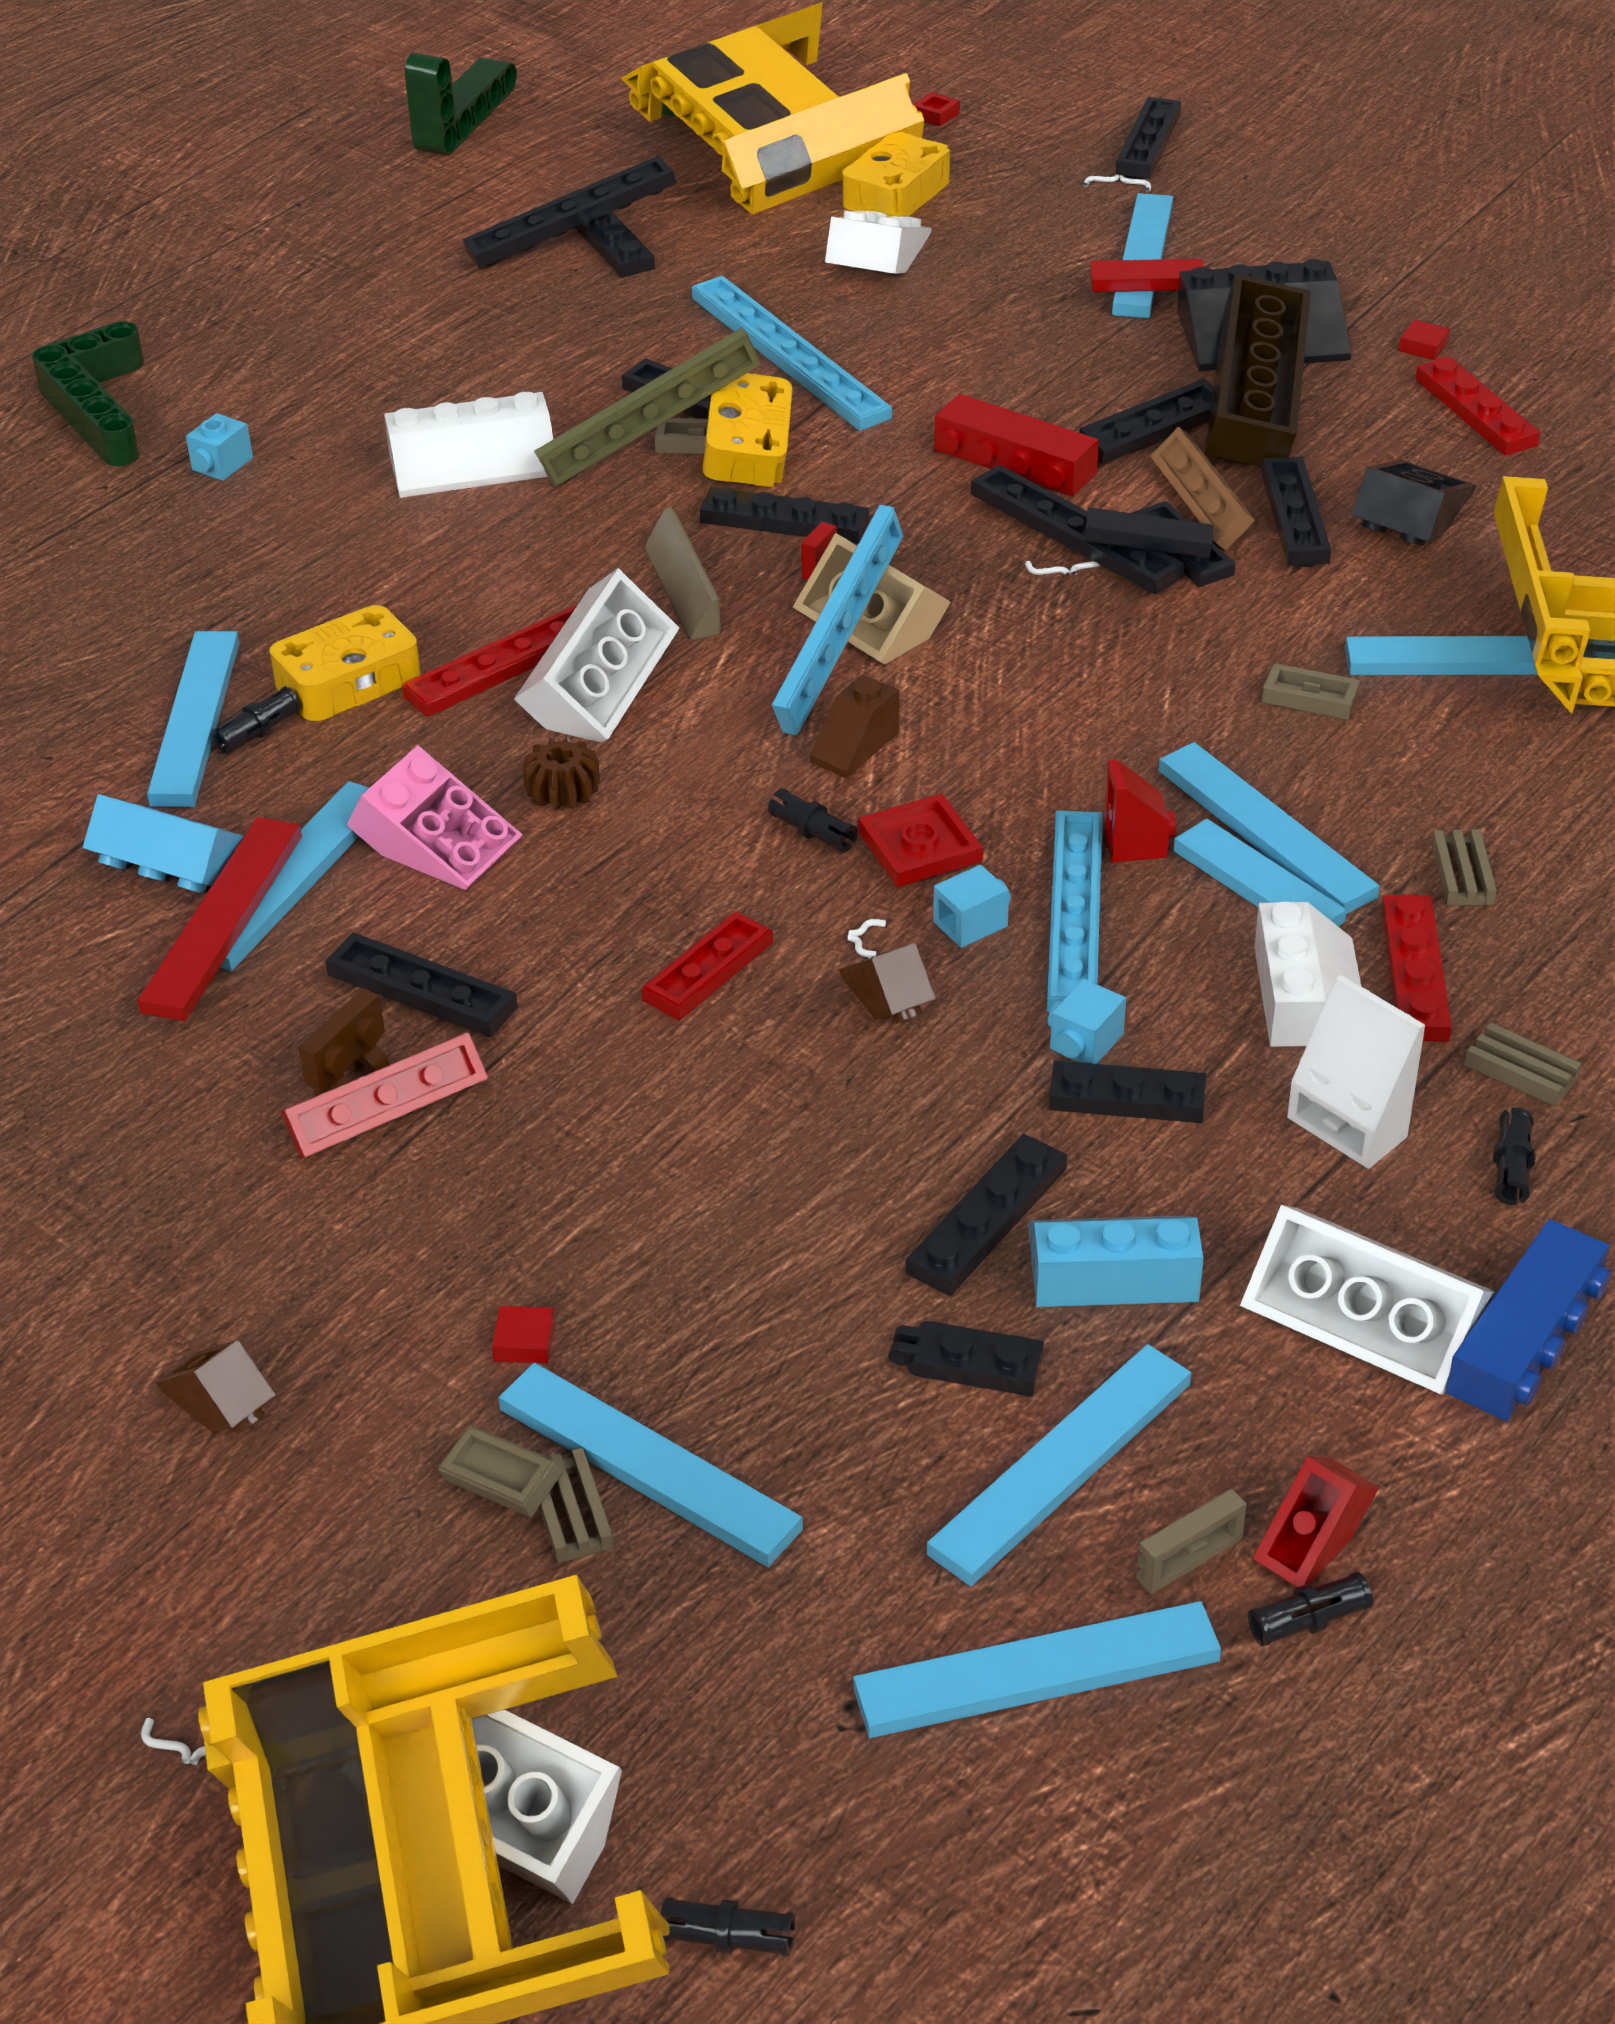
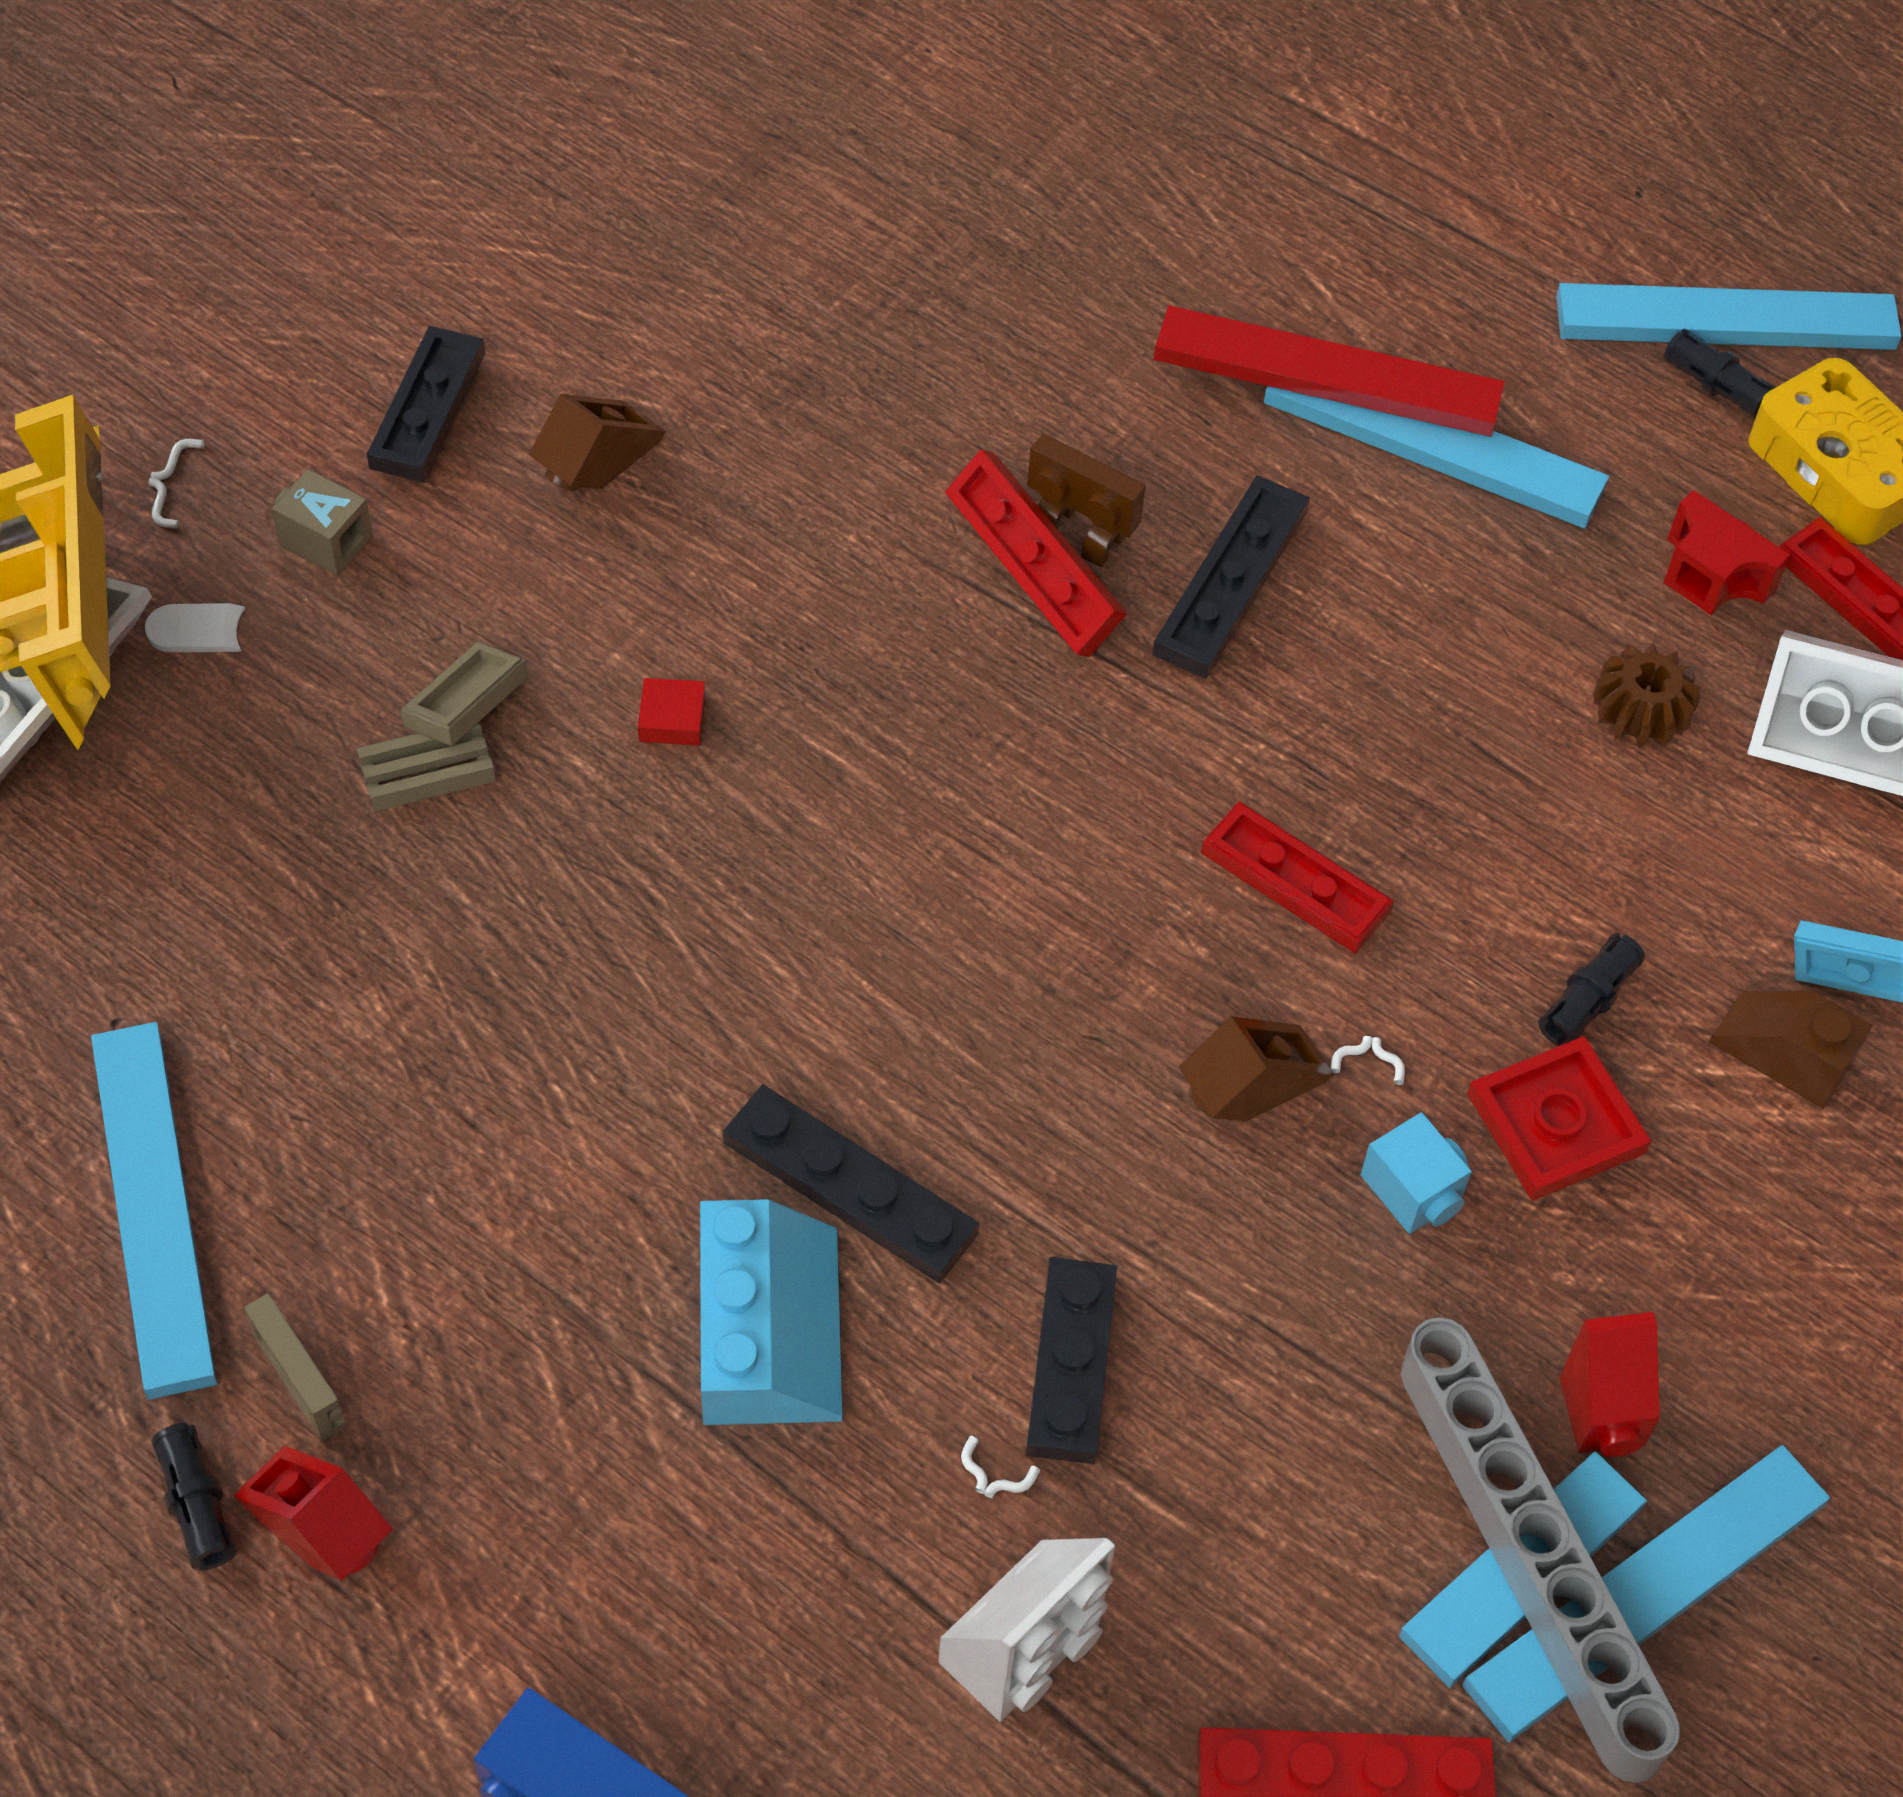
camera: 85 degrees right, 15 degrees up
(141, 1523) = (426, 404): none -> black plate
(158, 843) = (1469, 301): medium azure slope -> none
(284, 1592) = (322, 521): none -> dark tan brick
(432, 822) = (1529, 566): bright pink slope -> none
(438, 727) = (1720, 556): none -> red brick
(652, 1464) = (473, 837): medium azure tile -> none
(969, 1356) = (612, 1158): black hinge -> none
(1058, 1465) = (446, 1248): medium azure tile -> none
(1074, 903) = (1388, 1310): medium azure tile -> none
(1087, 1022) = (1182, 1305): medium azure brick -> none
(1231, 1142) = (978, 1472): none -> white piece
(1254, 854) = (1534, 1576): none -> light grey beam
(1297, 965) = (1294, 1609): white slope -> none
(1364, 1297) = (677, 1612): white slope -> none

